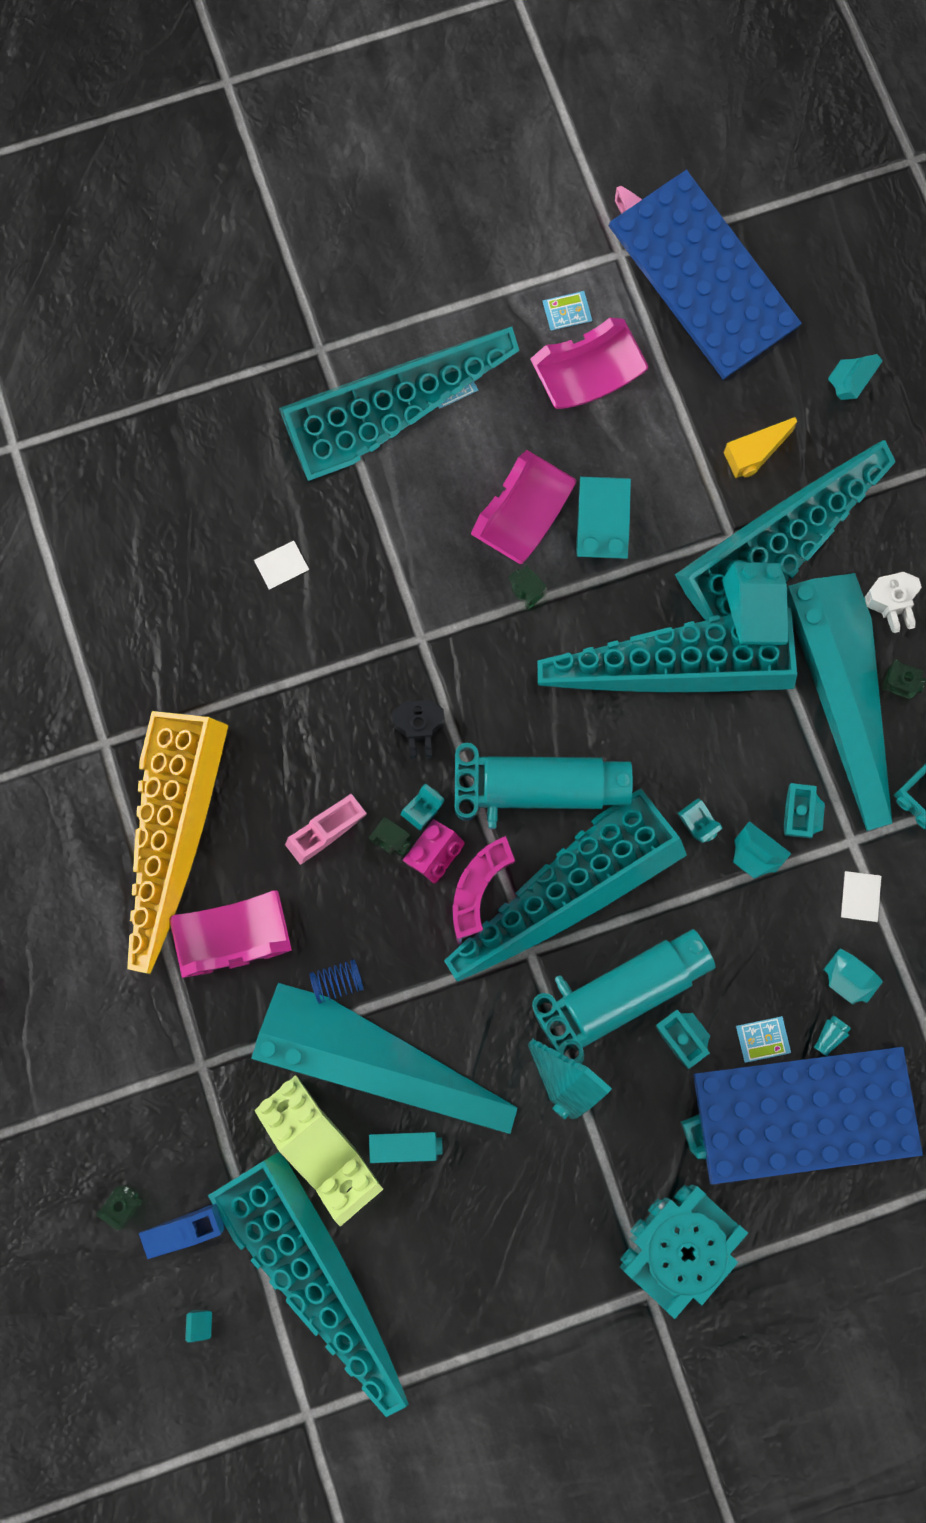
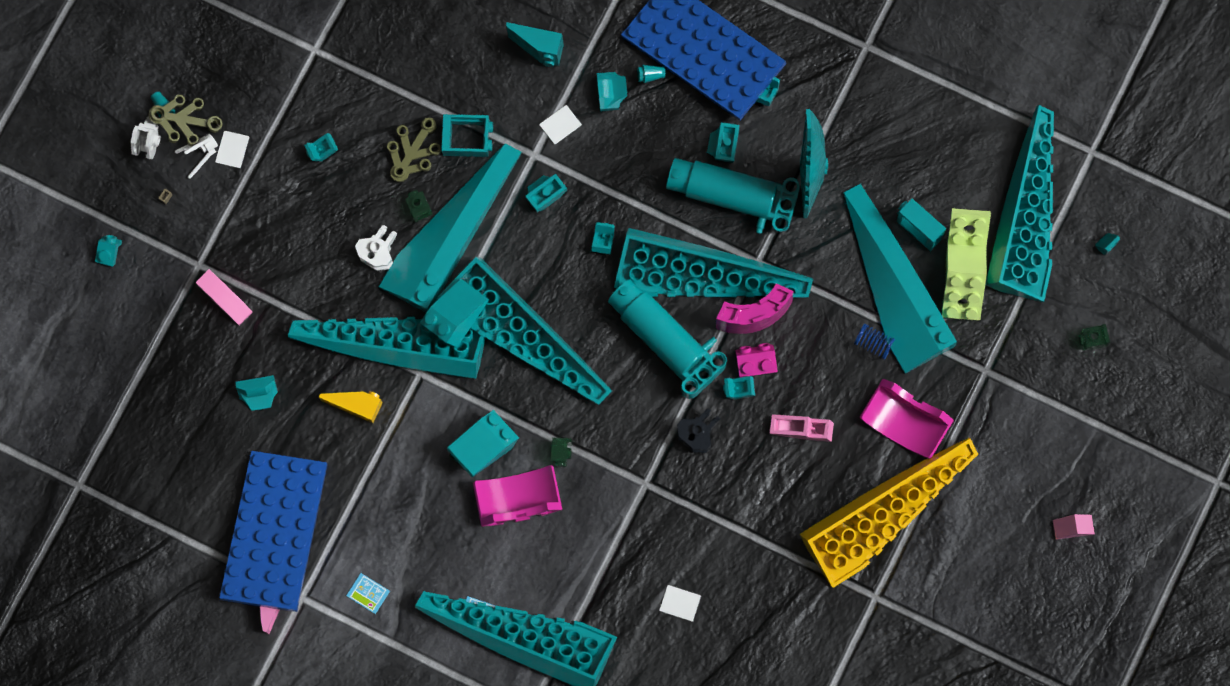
camera: 130 degrees left, 0 degrees up
(182, 1232) = (1073, 293): blue slope -> none
(391, 837) = (772, 388): clear green brick -> none
(590, 367) = (394, 542): dark pink panel -> none
(658, 1260) = (831, 47): teal piece -> none
(758, 852) = (590, 195): teal slope -> none
(763, 1039) = (685, 105): sticker -> none

